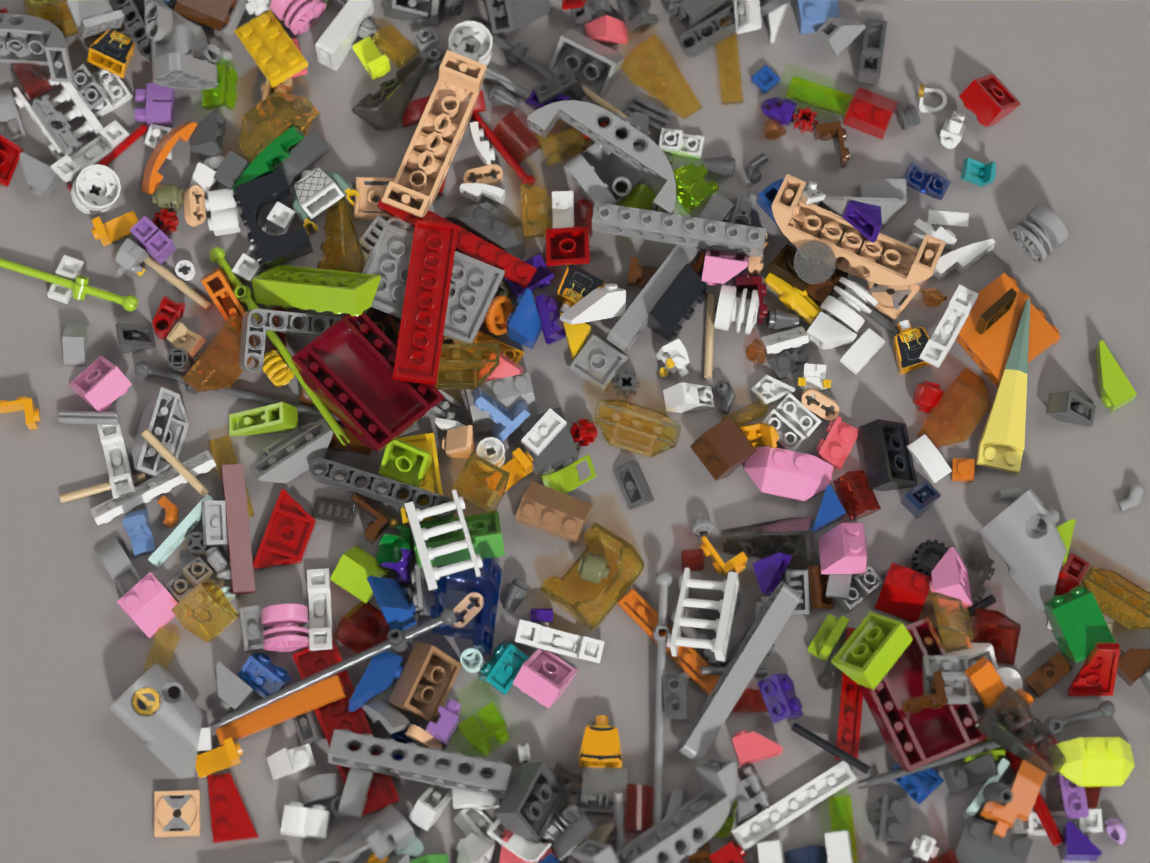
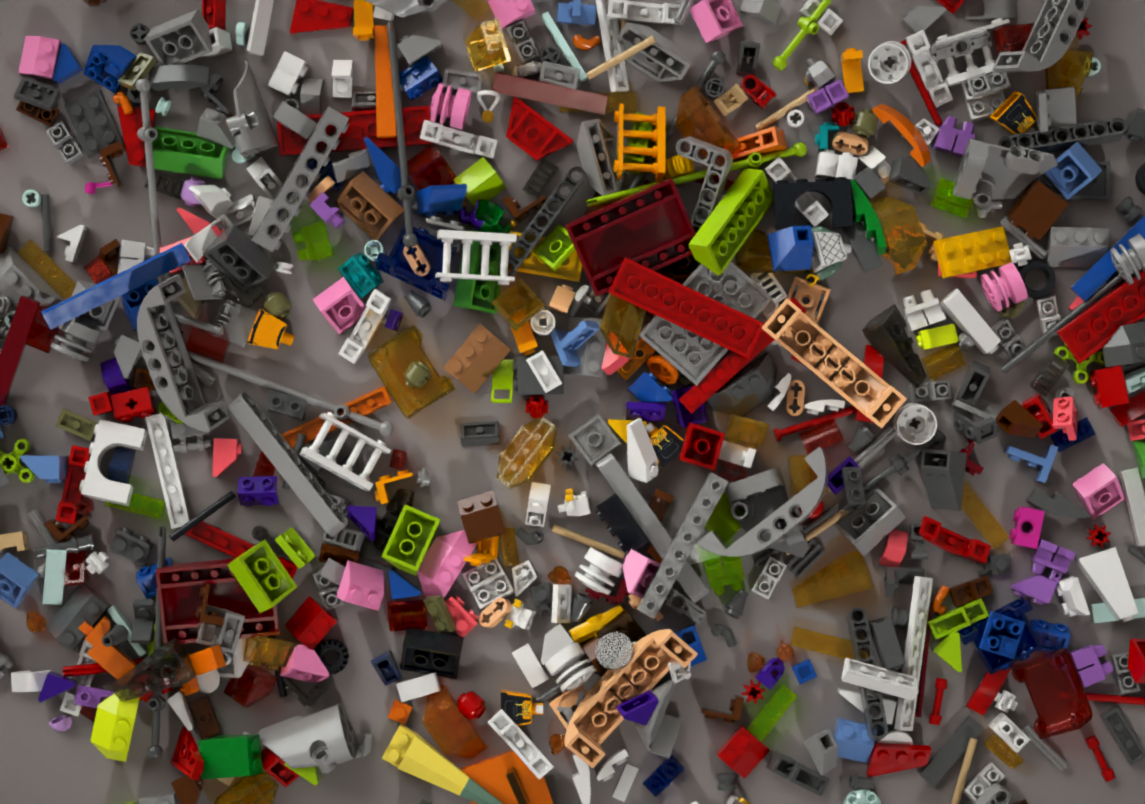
camera: 105 degrees right, 15 degrees up
(197, 235) = (821, 138): none -> teal bracket
(248, 398) = (658, 135): none -> light orange fence
(282, 590) = (487, 115): none -> white piece
(326, 222) = (791, 248): none -> blue slope
(352, 79) = (924, 313): none -> white hips
(568, 745) = (277, 305): none -> olive head
(752, 104) = (785, 652): none -> clear orange piece
(774, 510) = (410, 539): none -> lime slope
(842, 459) = (439, 613): none -> olive plate
(1044, 706) = (181, 708): none -> white slope

